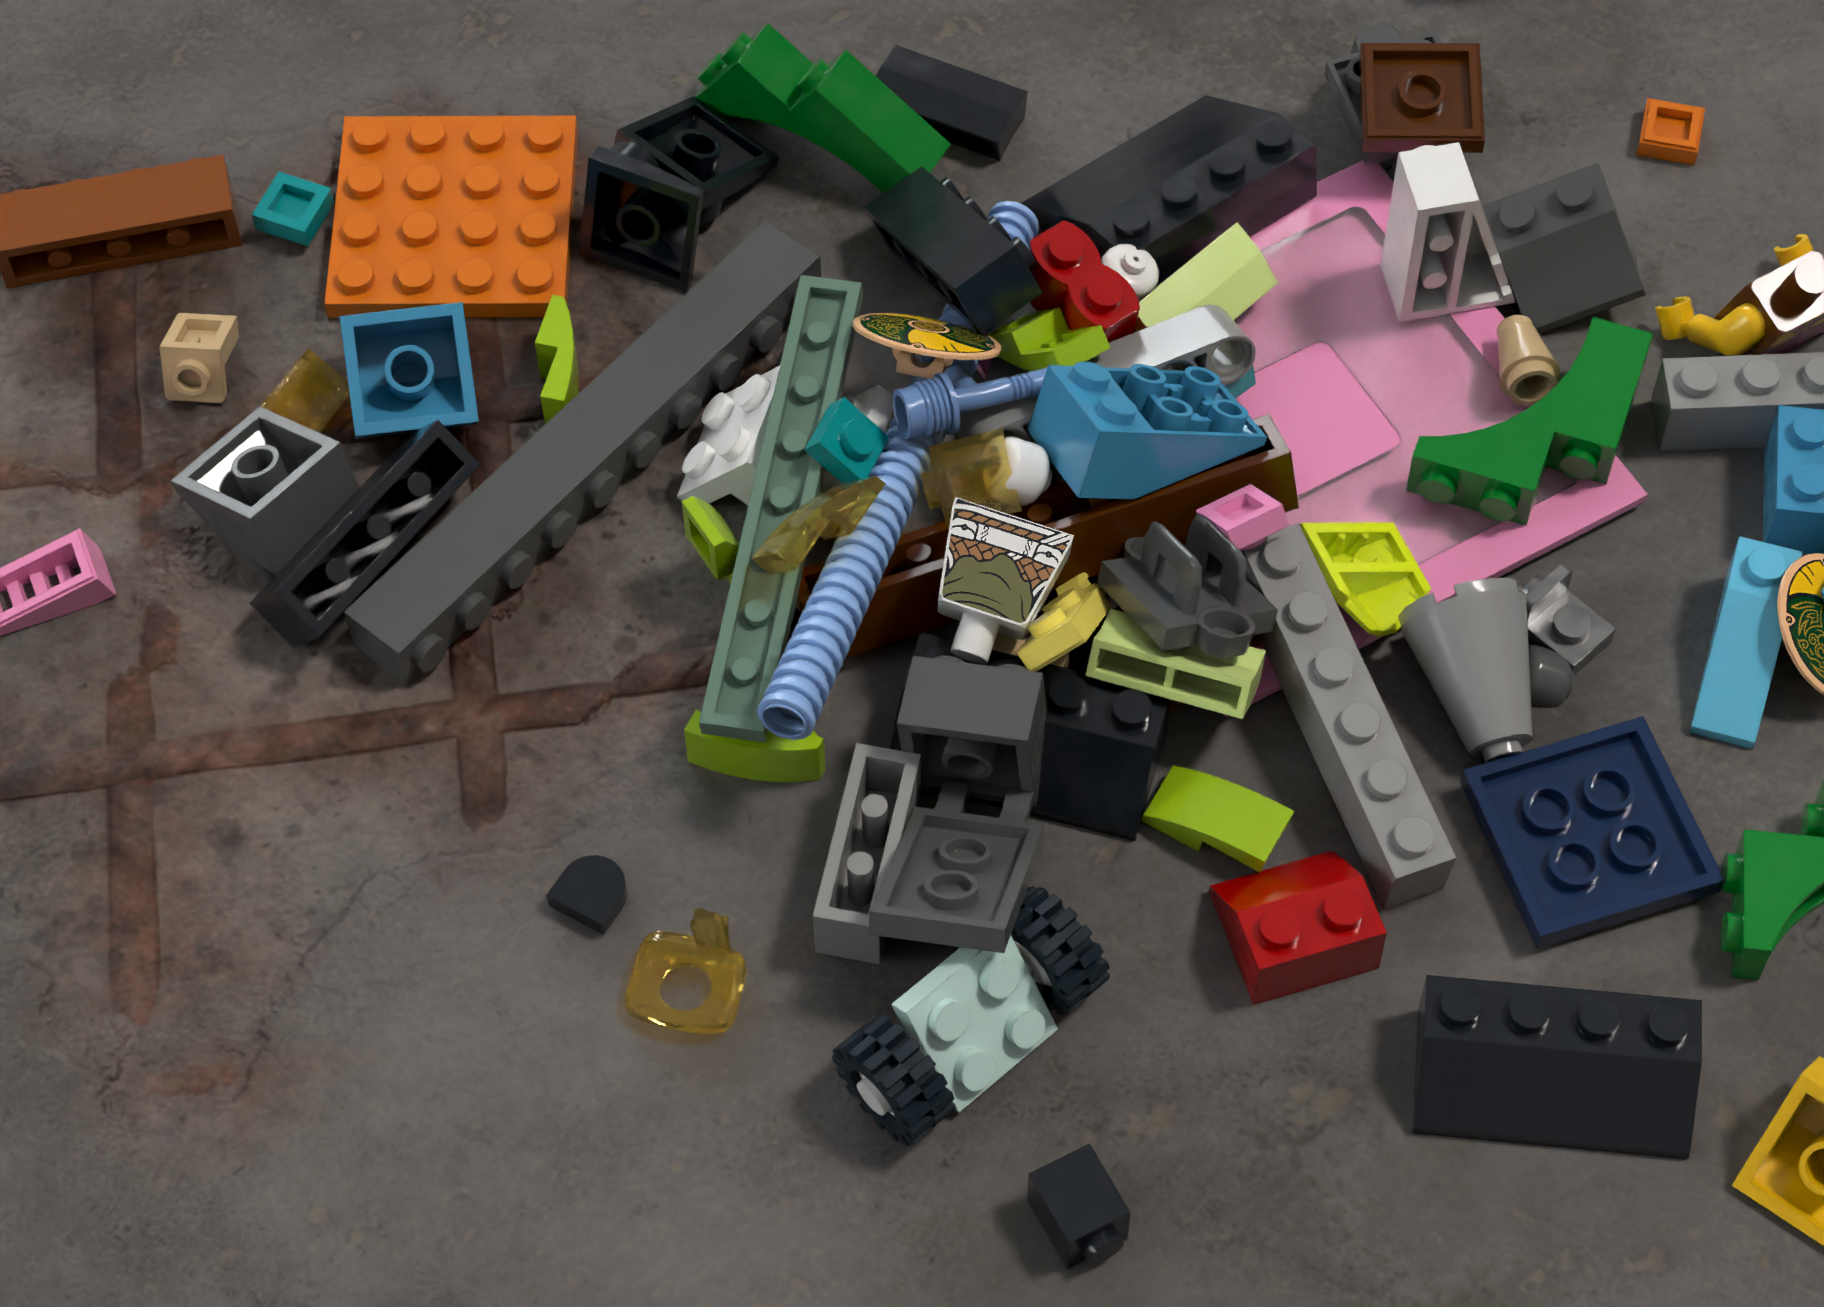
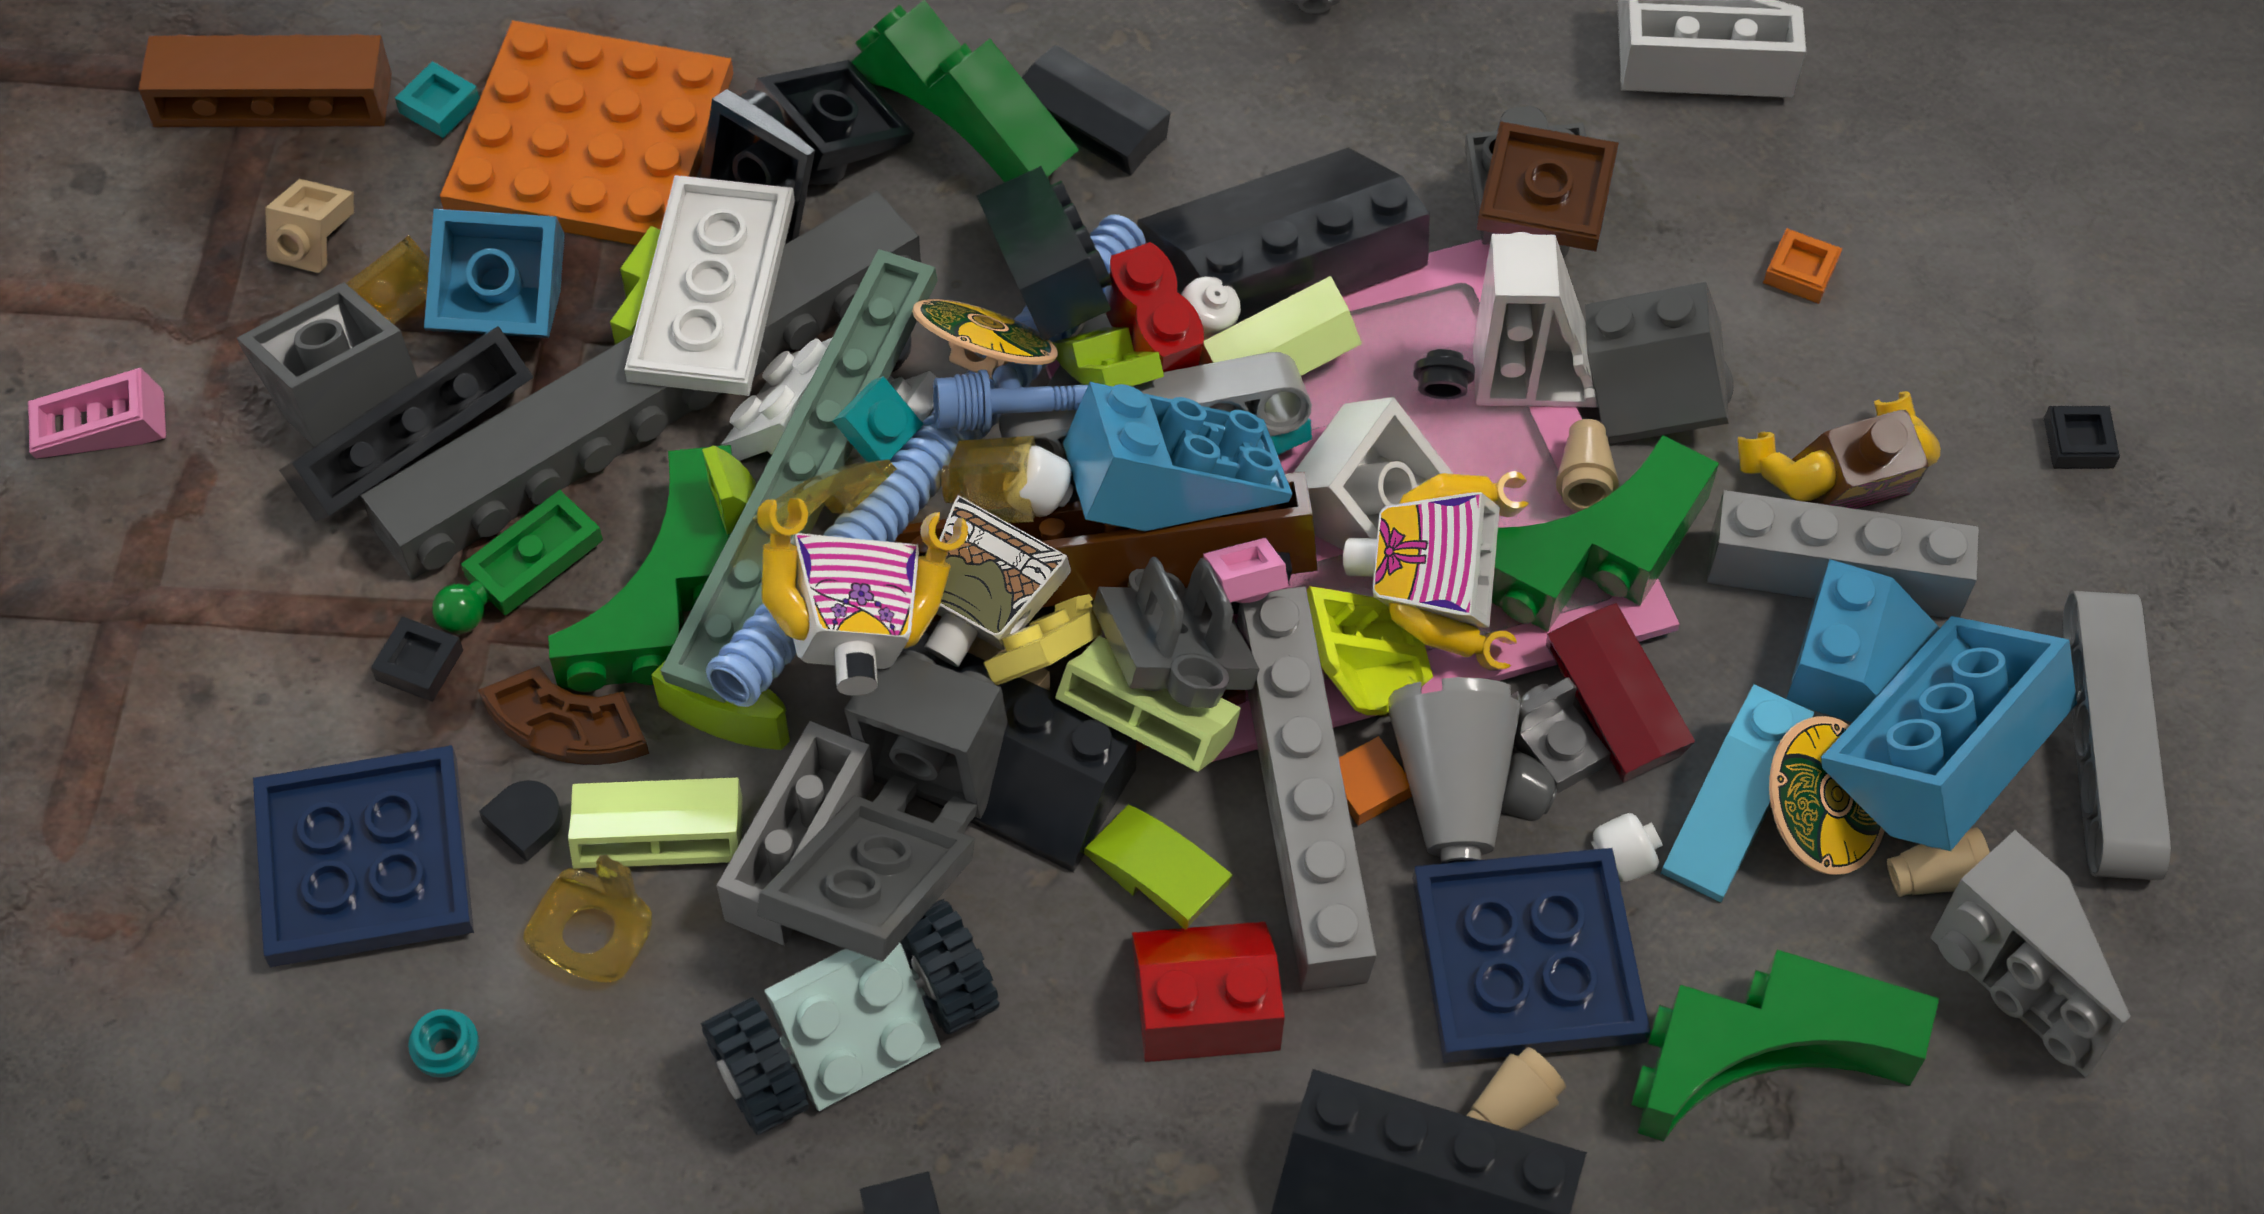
camera: 10 degrees right, 0 degrees up
(440, 760) = (417, 659): none -> black plate
(444, 960) = (361, 856): none -> dark blue plate
(512, 649) = (517, 563): none -> green plate
(575, 1104) = (439, 1026): none -> teal plate
(600, 795) = (564, 723): none -> reddish brown tile
(631, 342) = (710, 285): none -> white tile
(657, 684) = (642, 621): none -> green arch
(723, 871) = (656, 822): none -> yellowish green piece
(883, 612) = (849, 596): none -> torso
(1332, 413) = (1363, 464): none -> white slope
(1364, 298) = (1443, 374): none -> black plate
(1403, 694) = (1372, 780): none -> orange tile
(1418, 476) = (1439, 561): none -> torso
(1610, 568) = (1619, 691): none -> dark red piece
(1618, 957) = (1519, 1091): none -> tan cone
(1659, 708) = (1631, 845): none -> white piece

